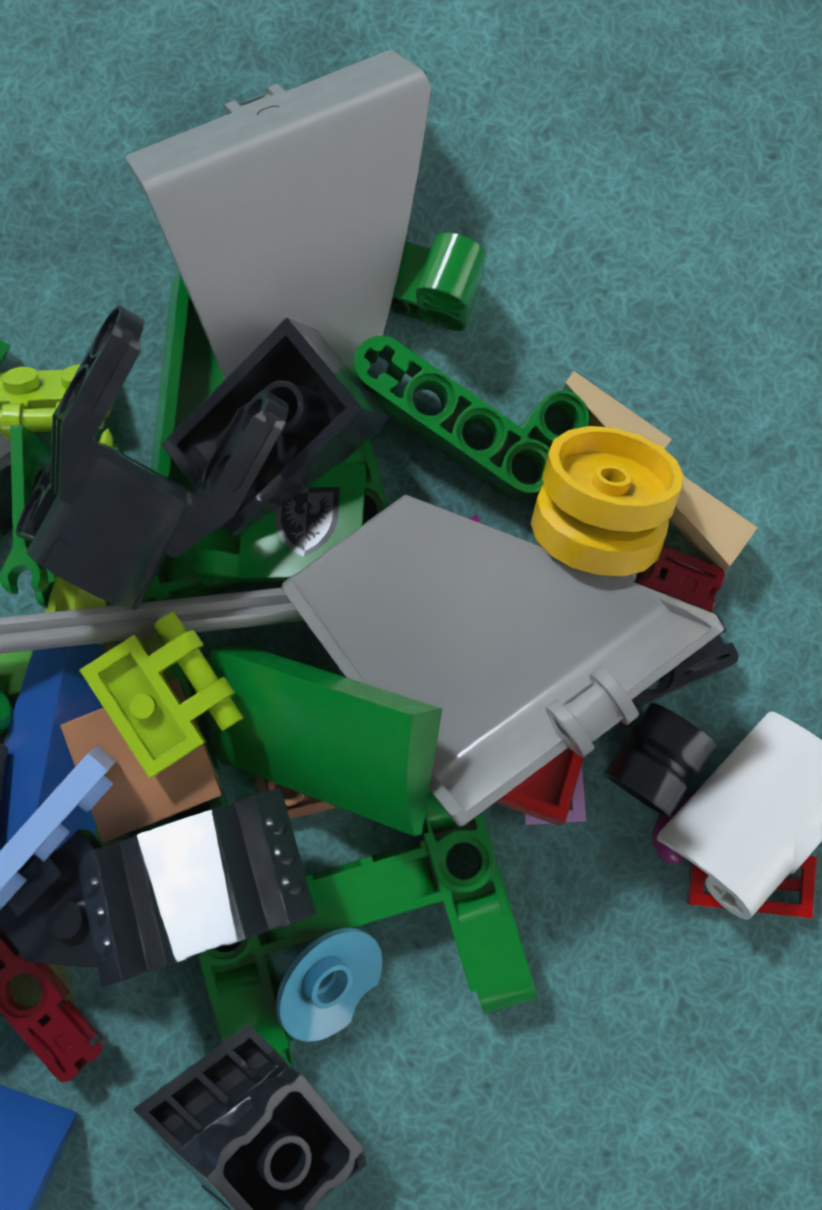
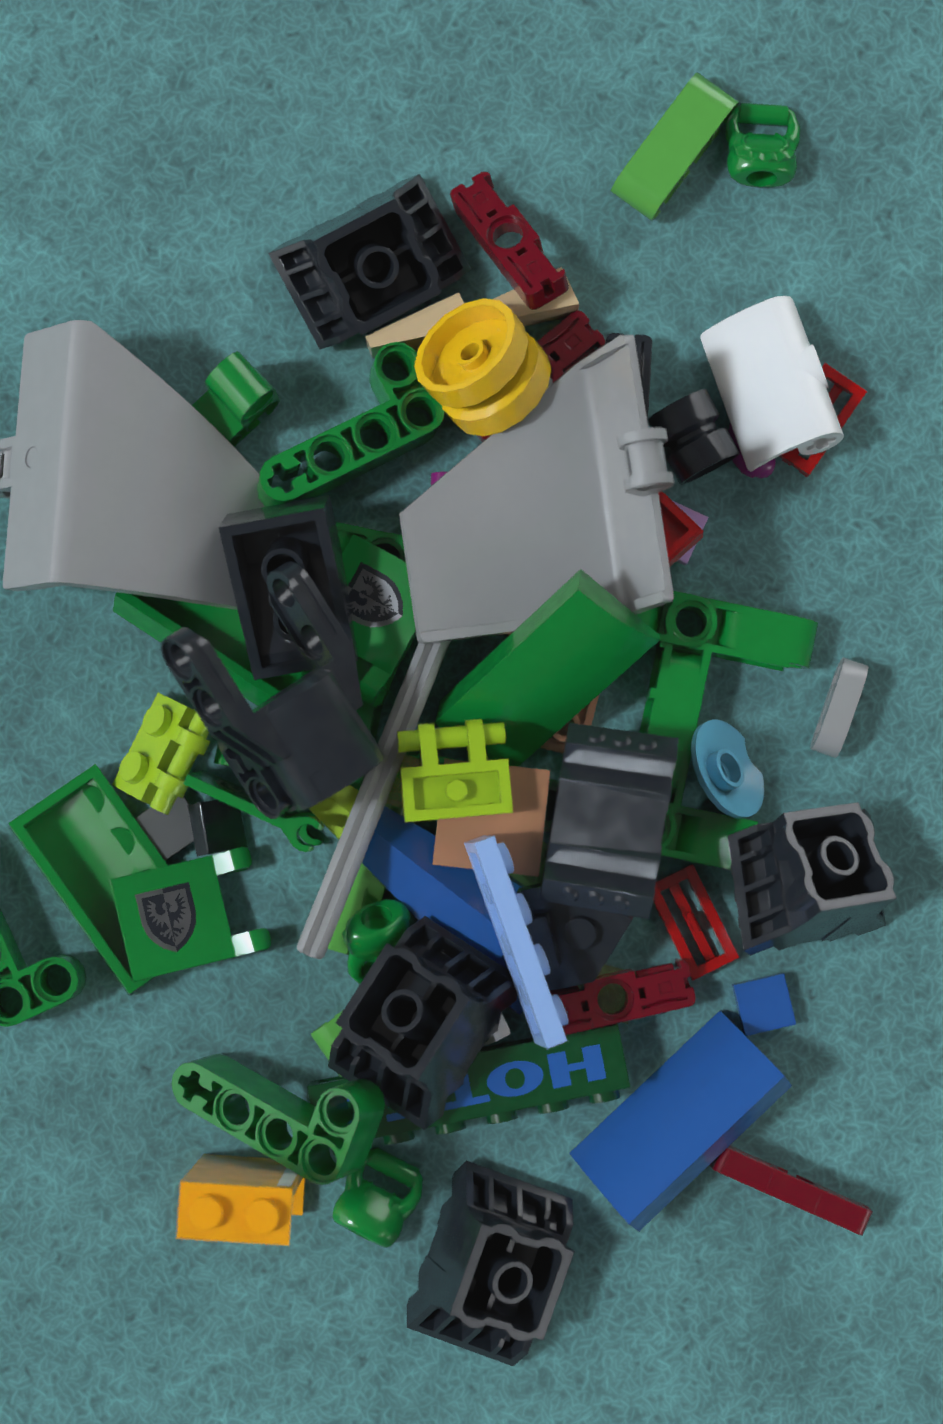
camera: 70 degrees left, 5 degrees up
(106, 1157) = (763, 1004): none -> blue tile
(123, 1077) = (711, 962): none -> red tile
(461, 1070) = (839, 707): none -> light grey beam
(654, 342) = (370, 263): none -> black slope
(736, 486) = (522, 264): none -> dark red piece

